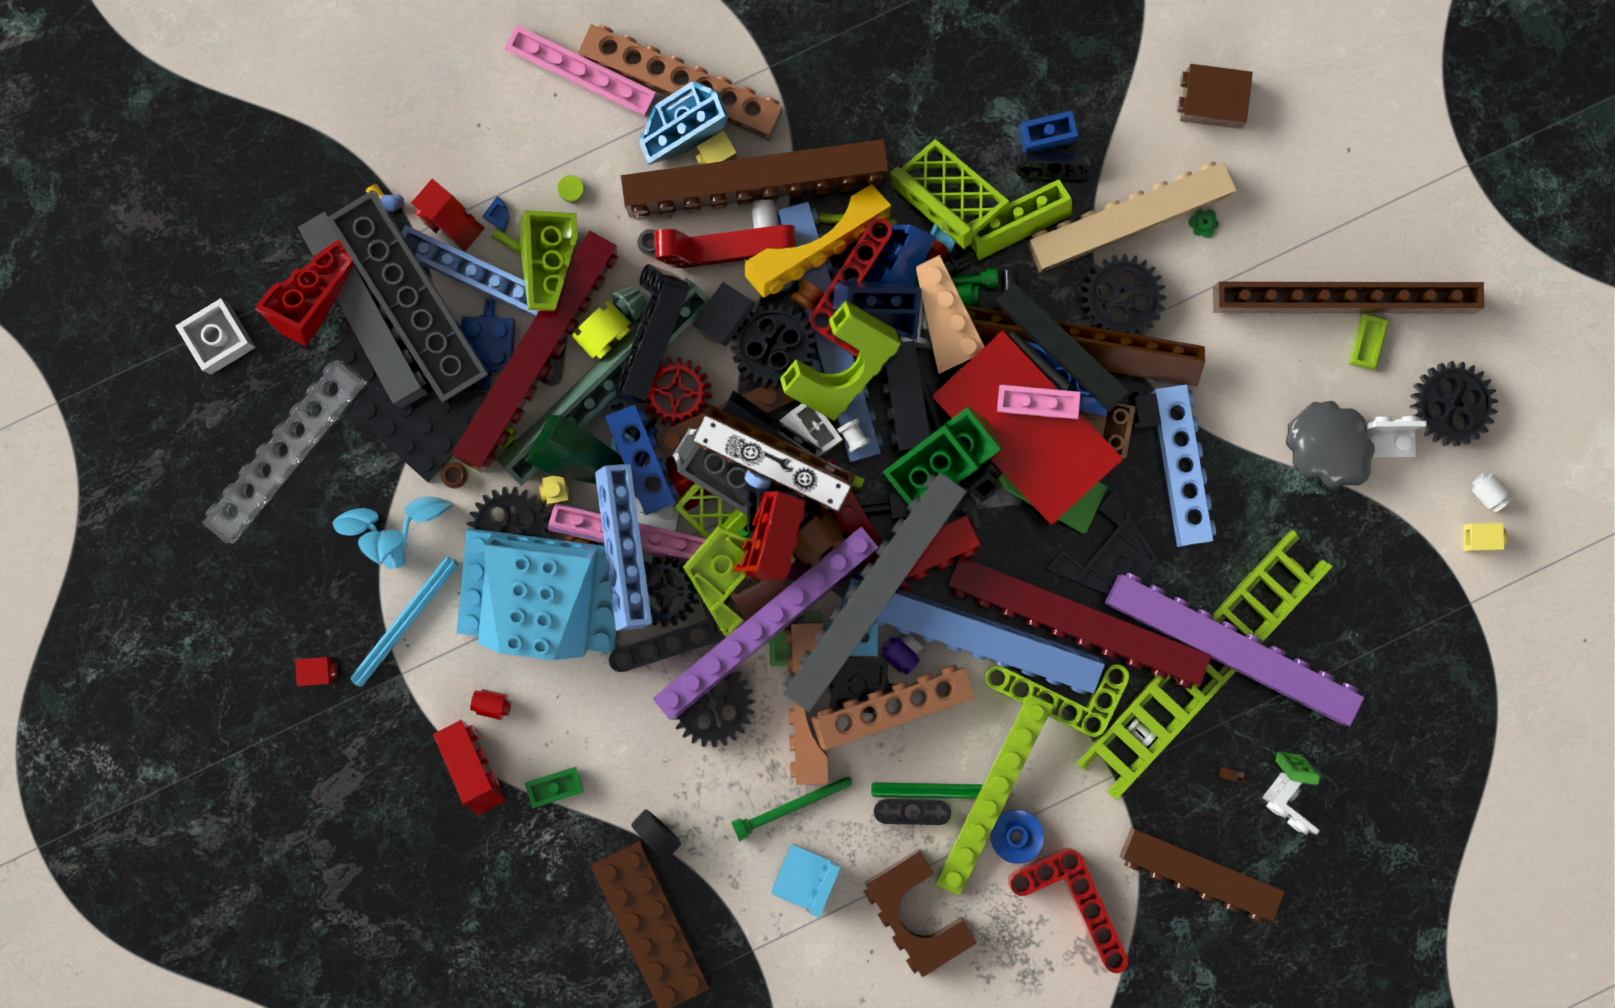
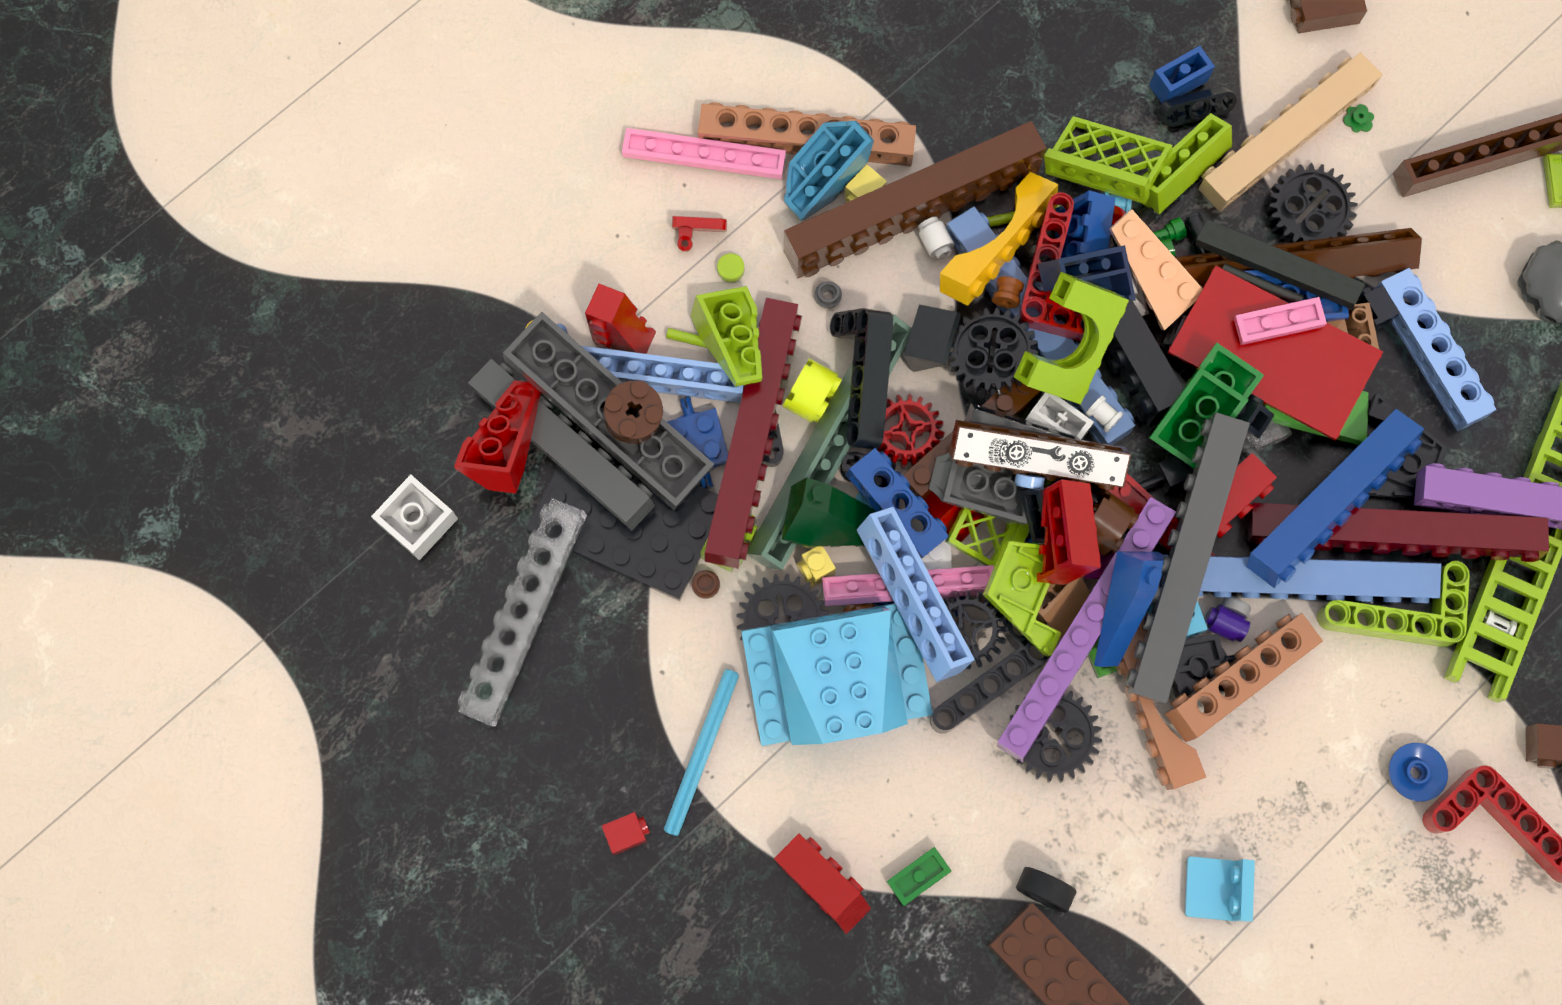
camera: 20 degrees left, 10 degrees down
(389, 544) = (662, 668): medium azure plant -> none
(410, 301) = (638, 396): none -> reddish brown brick
(490, 704) = (822, 809): red brick -> none
(497, 214) = (665, 314): blue tile -> none
(542, 137) = (687, 225): none -> red piece
(629, 302) = (829, 355): sand green piece -> none
(687, 252) = (904, 275): red beam -> none
(744, 827) = (1132, 855): green piece -> none
(808, 608) = (1130, 595): none -> blue wedge
(918, 821) = (1304, 771): black beam -> none
(925, 790) = (1316, 752): green axle -> none
(925, 951) = (1308, 874): reddish brown arch -> none
(994, 794) = (1378, 735): lime plate -> none
(1031, 577) = (1335, 498): none -> blue brick

